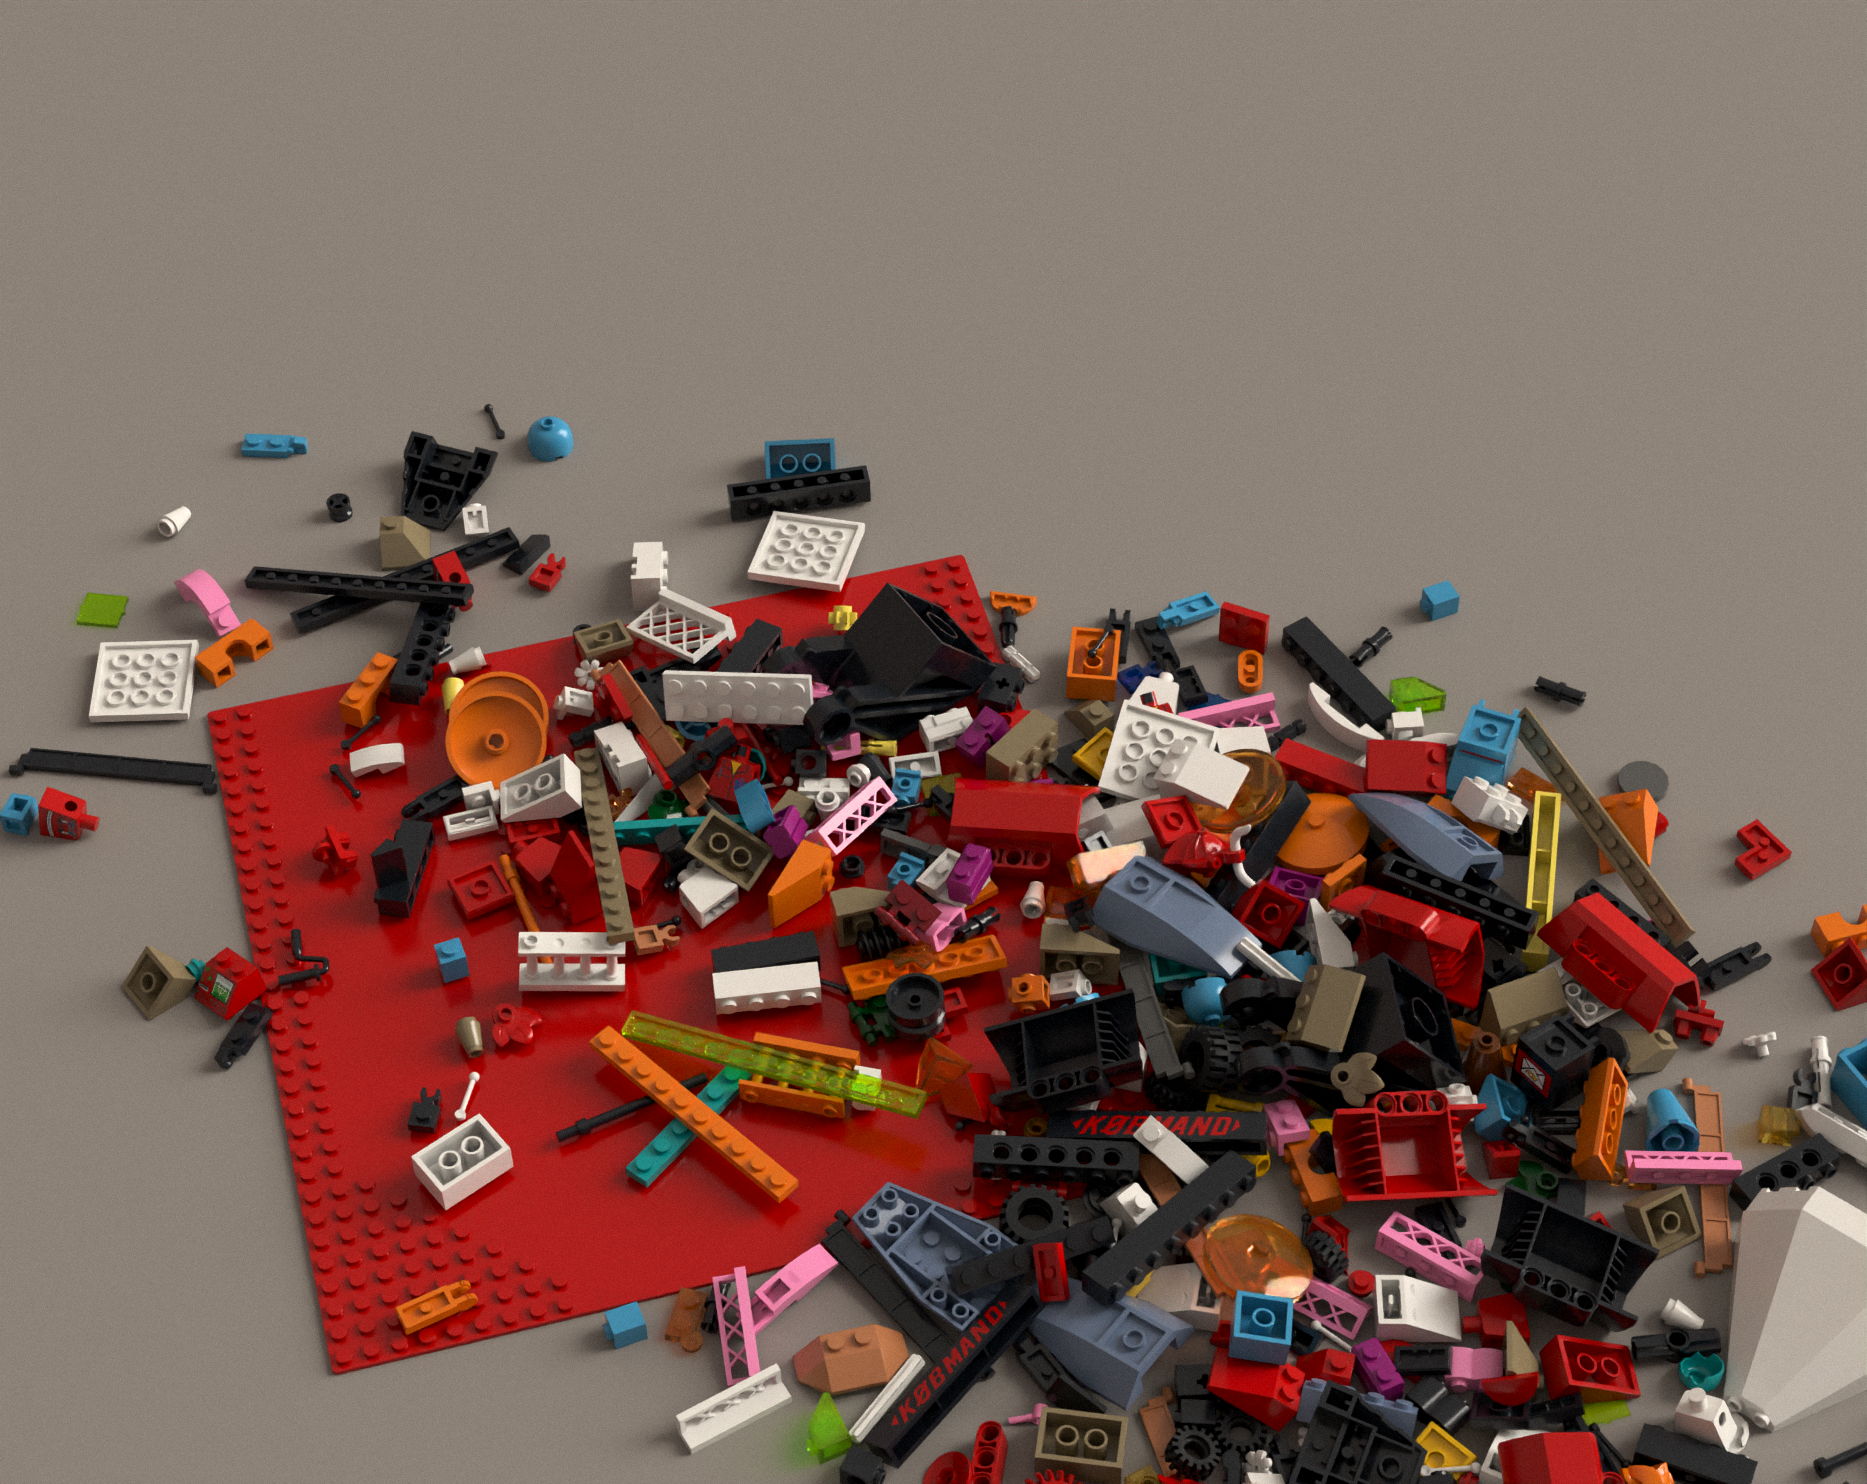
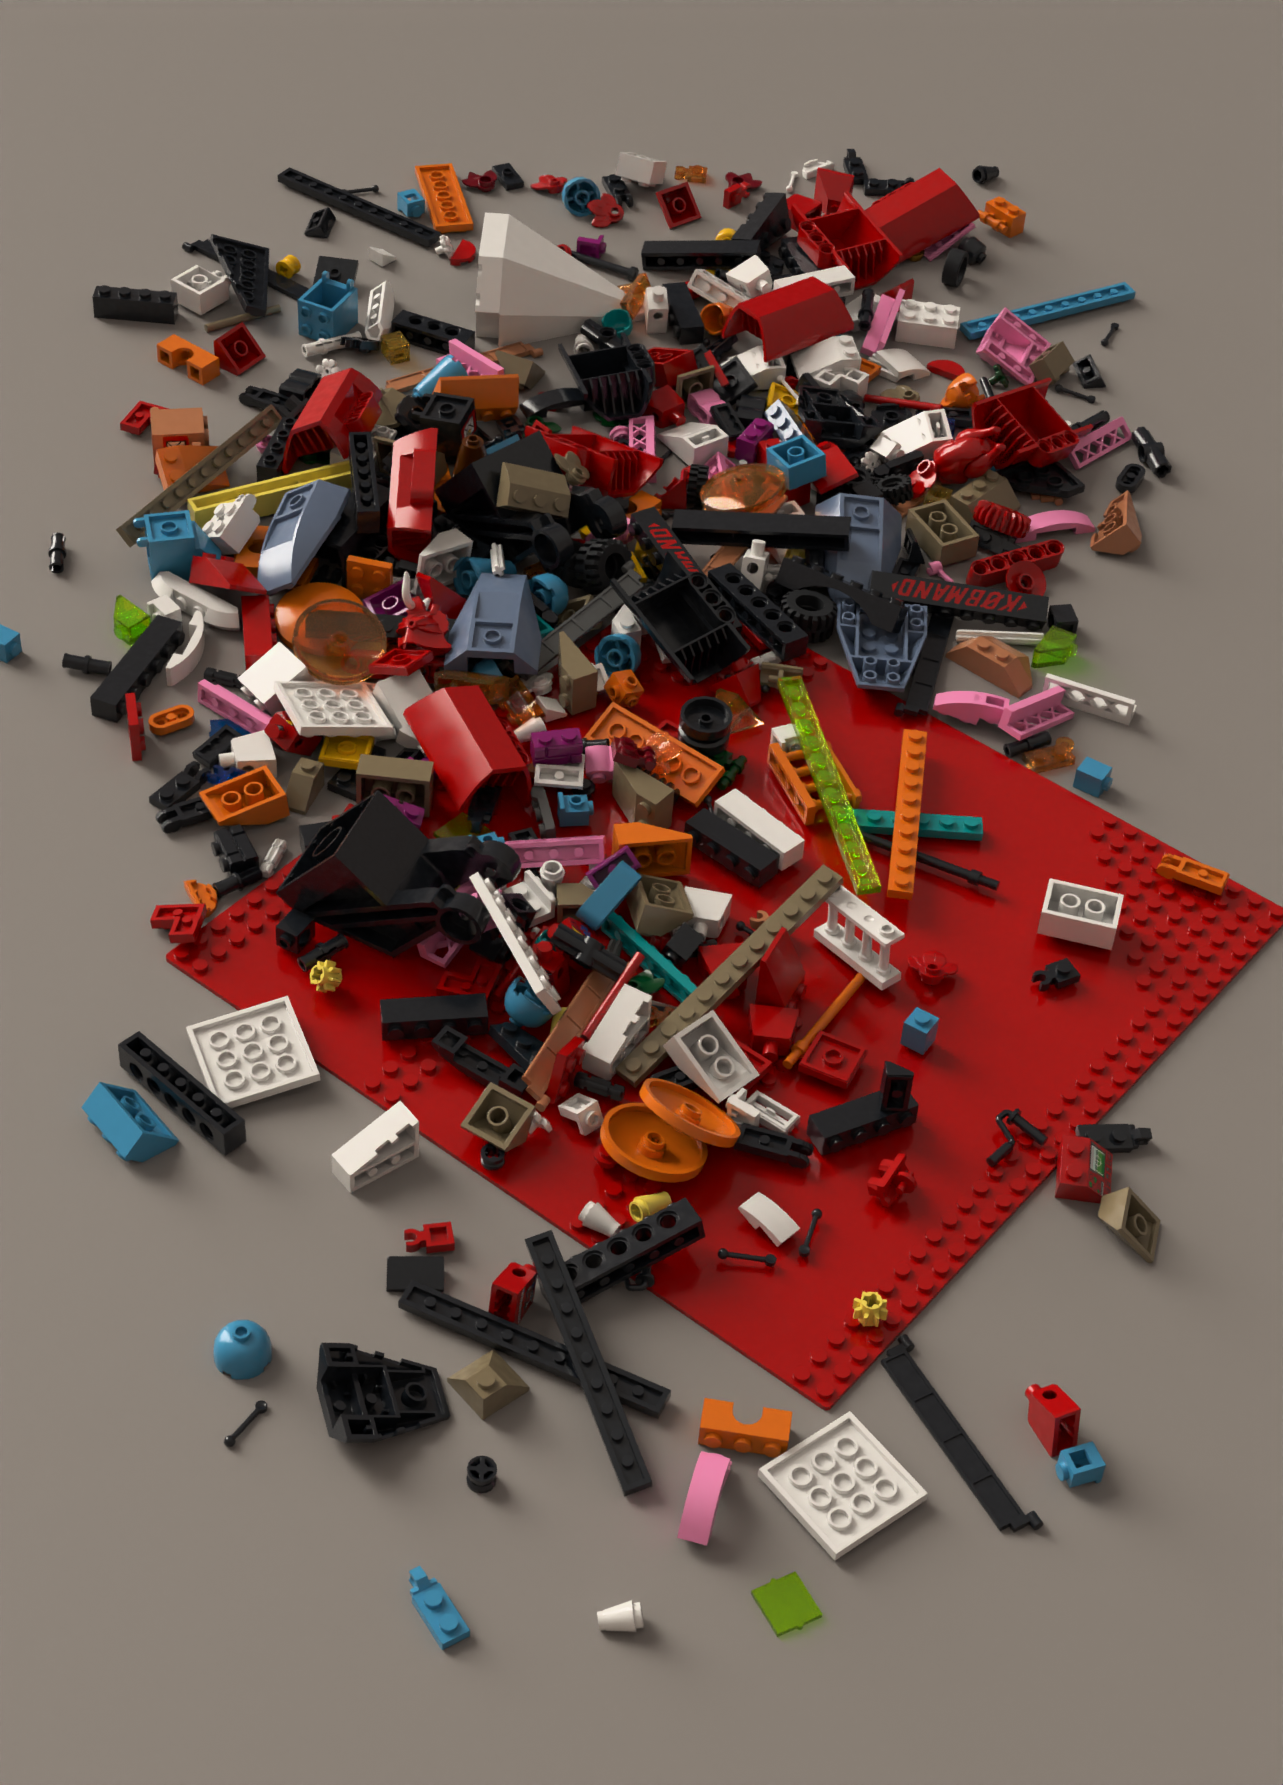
camera: 130 degrees left, 5 degrees down
(196, 968) = (1091, 1208): teal plate -> none
(245, 766) = (870, 1309): none -> light yellow gear
(359, 701) = (682, 1265): orange arch -> none
(460, 1114) = (1036, 956): white hinge -> none
(469, 1034) = (969, 984): dark tan cone -> none
(475, 520) = (407, 1338): white bracket -> none
(692, 615) = (413, 1066): white fence -> none
(927, 803) = (520, 836): black hinge -> none
(952, 1148) = (771, 672): none -> dark tan hips
(984, 574) = (182, 919): none -> red plate
(1041, 638) = (234, 850): none -> black brick
(1051, 1272) = (851, 567): red plate -> none
(1079, 913) = (547, 661): black hinge -> none
(1108, 630) = (207, 795): black hinge -> none
(1170, 1150) = (700, 553): white arch -> none
(1187, 610) = (131, 776): dark azure hinge -> none
(1200, 775) = (344, 662): white slope -> none
(1643, 775) = (121, 489): dark grey tile -> none
(1688, 841) = (178, 427): none -> nougat container
(1741, 1001) = (301, 384): none -> black brick
(1752, 1423) = (634, 294): none -> clear orange piece

